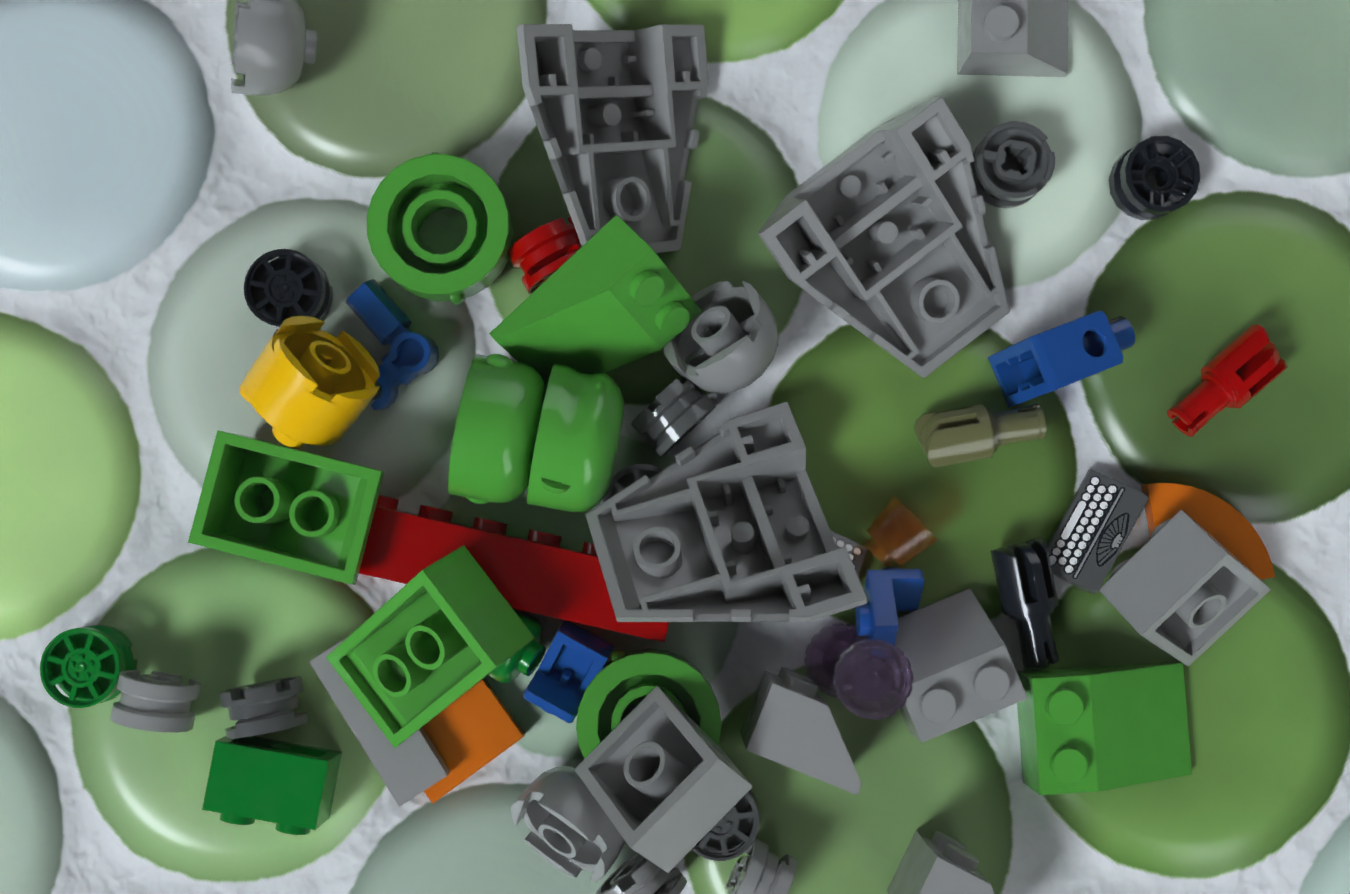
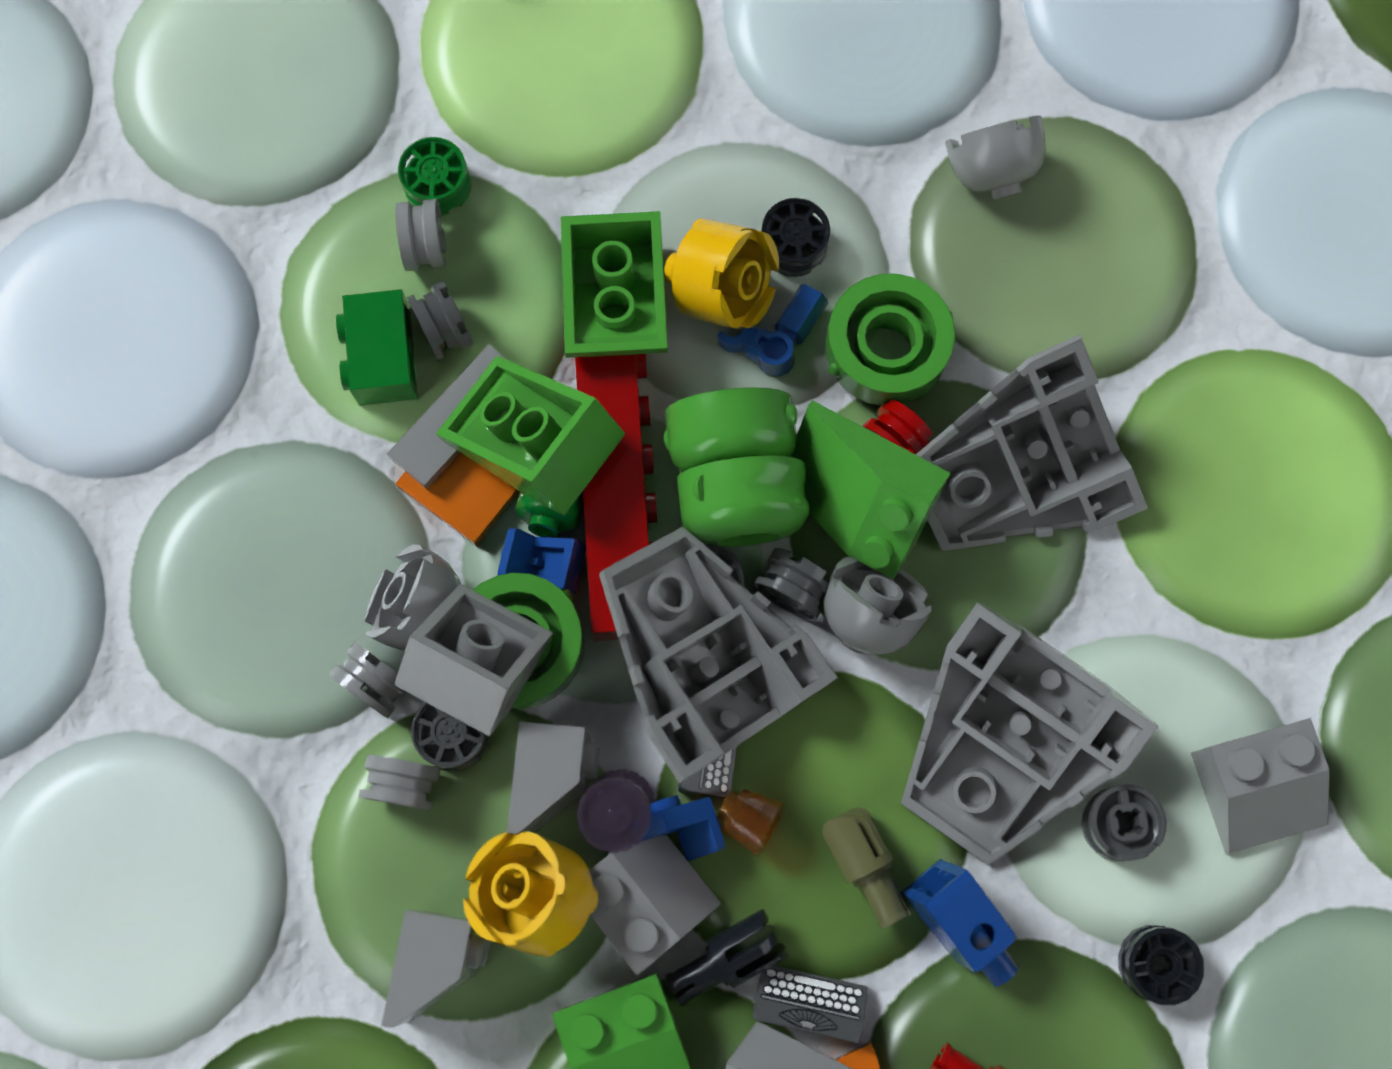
camera: 75 degrees right, 10 degrees down
(923, 788) = (529, 893): none -> yellow brick

